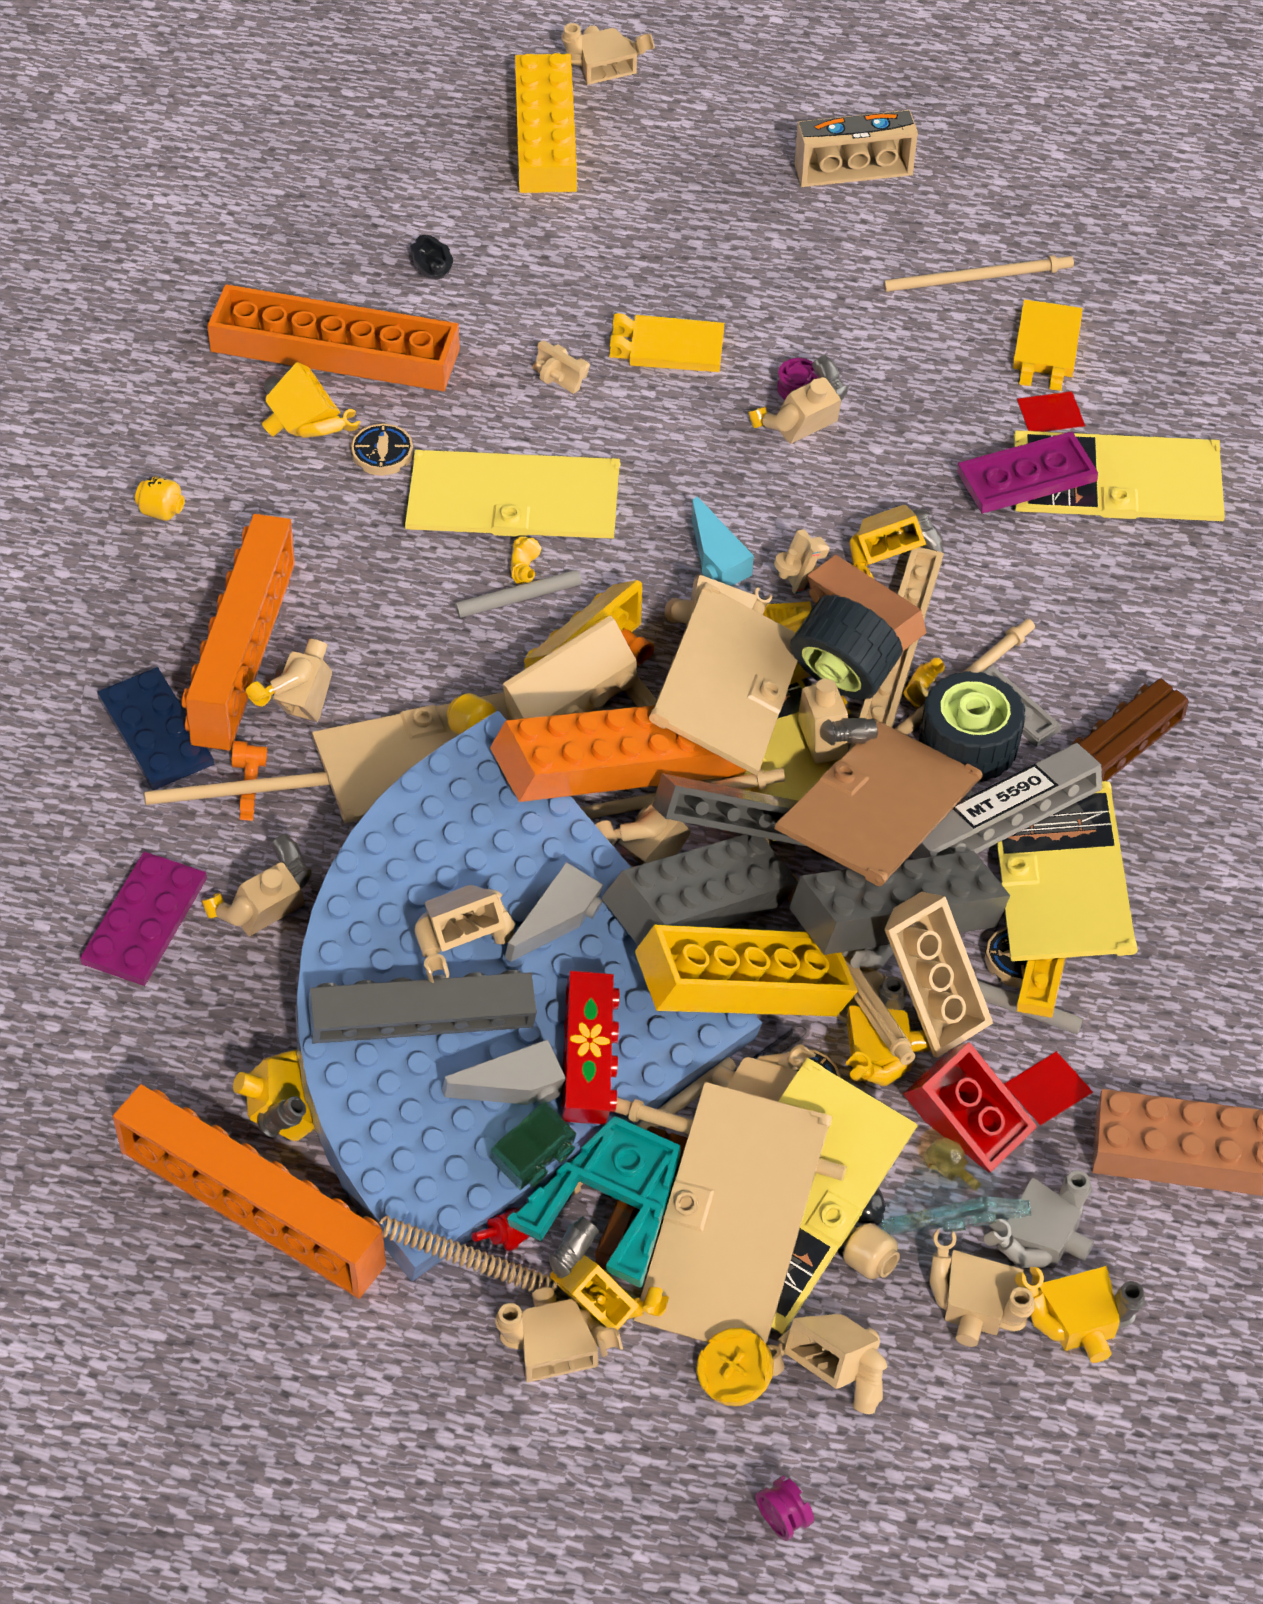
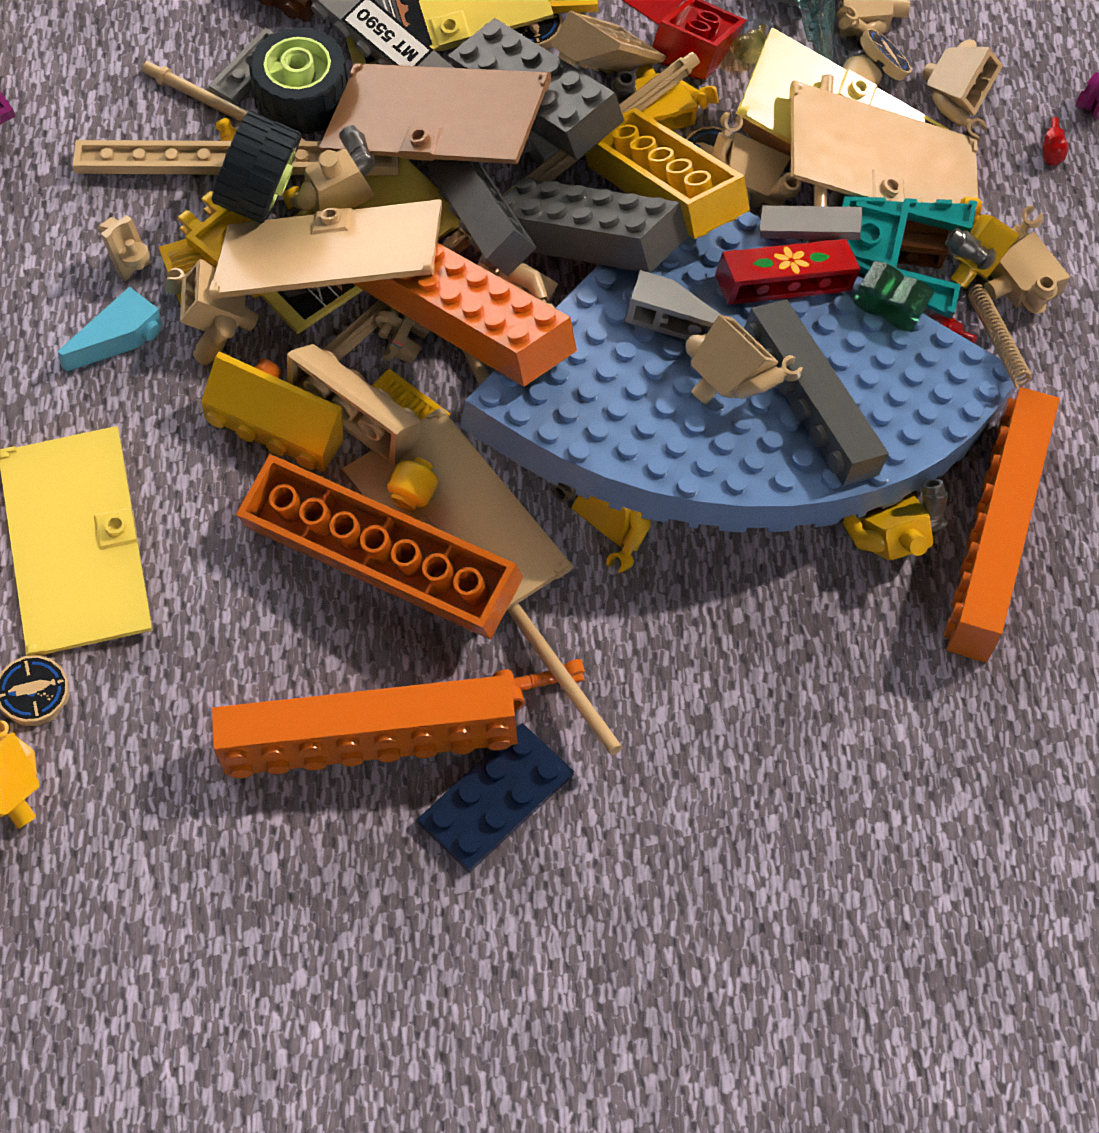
camera: 110 degrees left, 10 degrees up
(143, 918) = (733, 726): magenta plate -> none
(159, 498) = (173, 896): yellow head -> none
(268, 894) = (686, 606): tan torso -> none
(299, 684) = (422, 647): tan torso -> none
(408, 673) = (380, 546): none -> orange brick
(513, 1078) = (842, 318): light grey slope -> none
(518, 593) = (216, 501): light grey piece -> none
(523, 553) = (184, 506): yellow piece -> none
(649, 1096) = (811, 222): none -> light grey tile
(725, 1438) = (1055, 144): none -> red piece
(735, 1367) = (996, 148): yellow tile -> none
(846, 580) = (174, 179): nougat brick -> none
(893, 534) = (72, 180): yellow torso -> none
(894, 1282) = (882, 50): none -> tan tile

